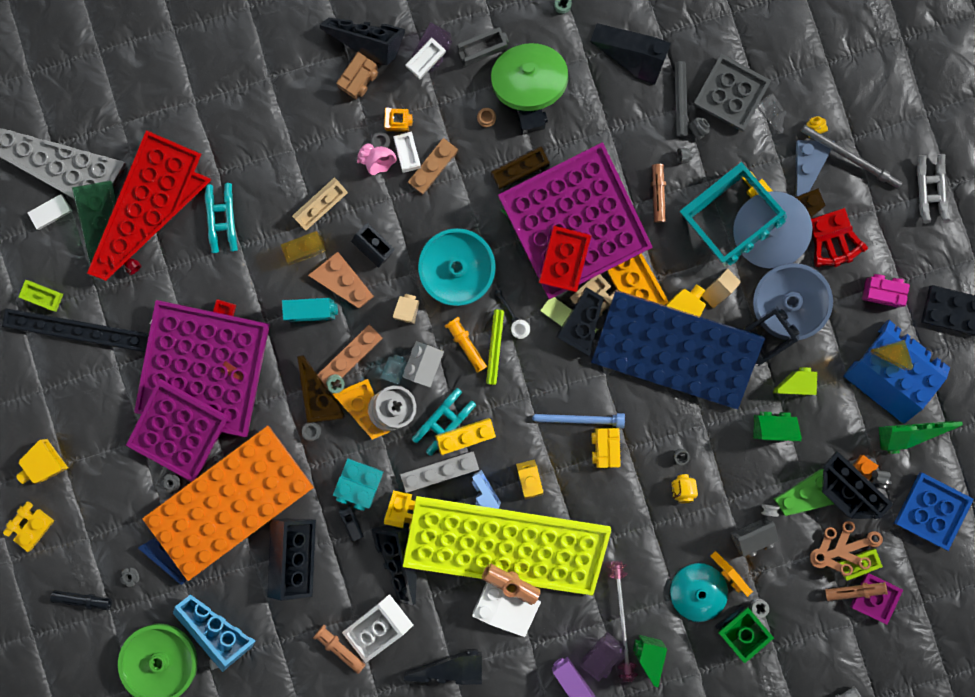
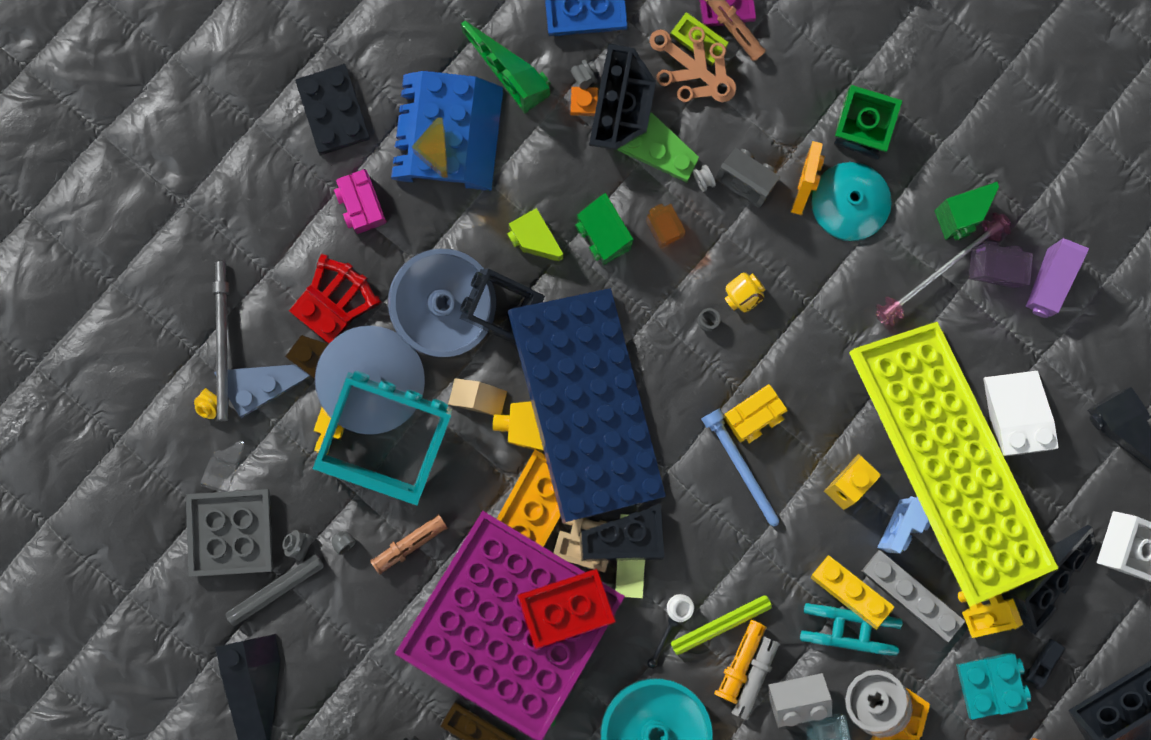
camera: 130 degrees left, 5 degrees down
(451, 347) = (756, 677): none -> light grey pin
(503, 579) = (992, 426): nougat piece -> none
(756, 467) = (665, 225): none -> clear orange brick
(765, 606) = (830, 126): light grey bush -> none
(924, 199) = (185, 218): light grey piece -> none

